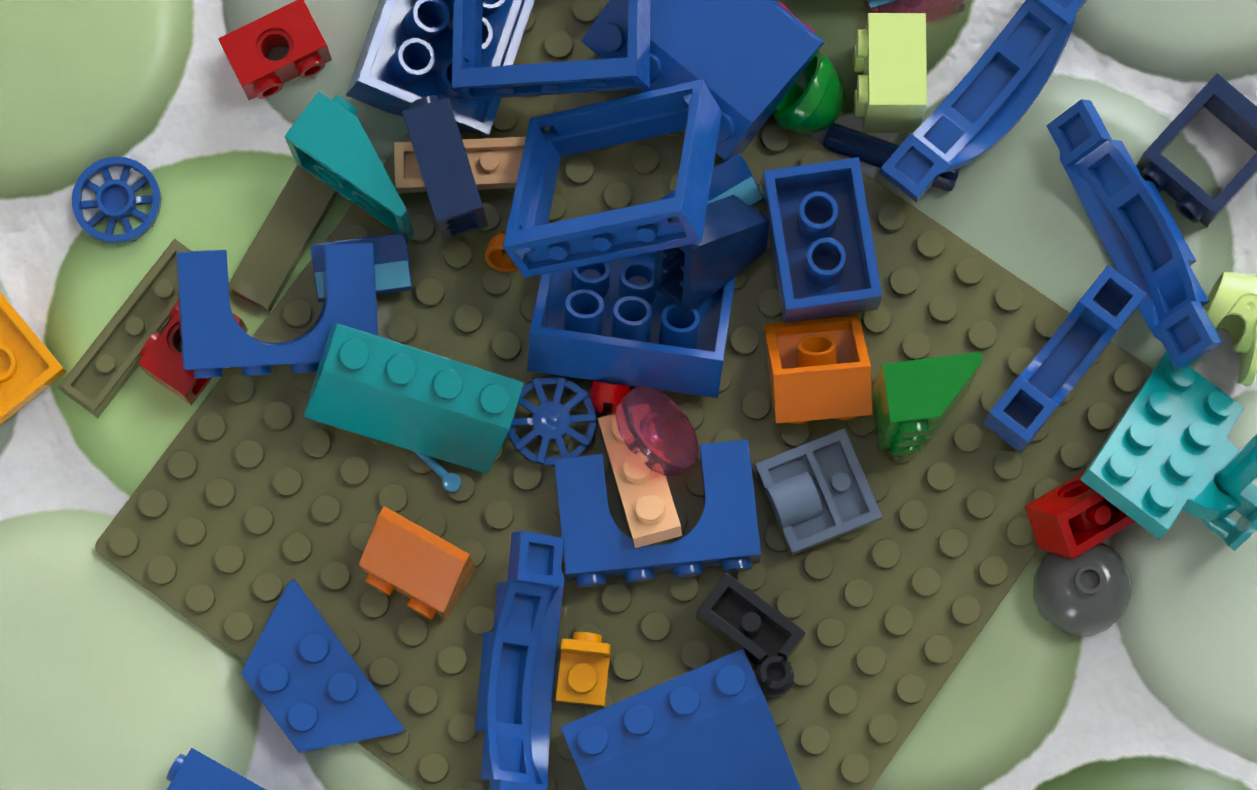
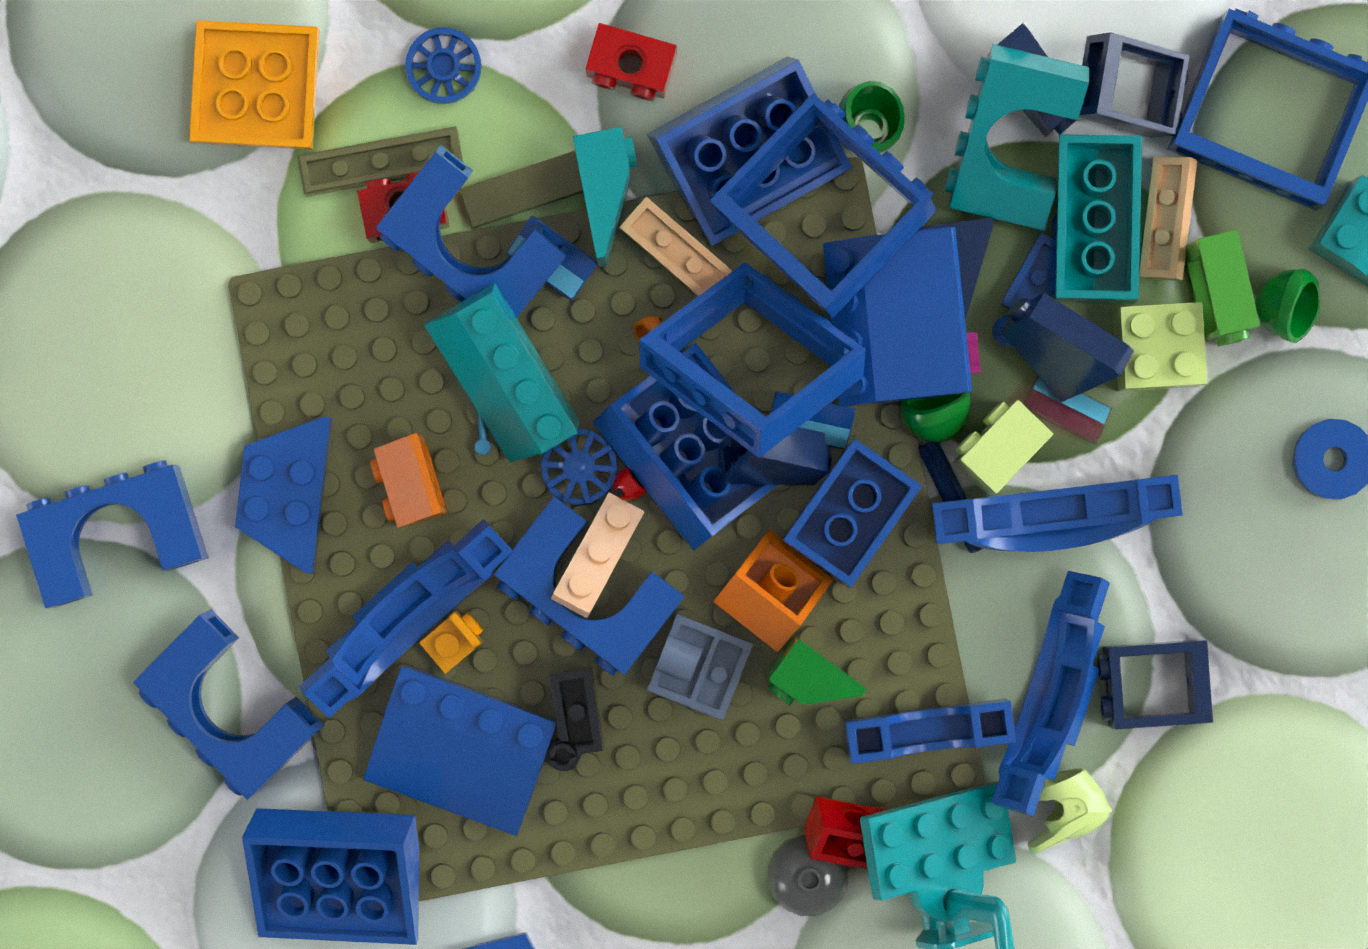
camera: 40 degrees right, 10 degrees up
(444, 166) = (656, 247): dark blue window -> none
(657, 429) = (634, 538): clear pink tile -> none

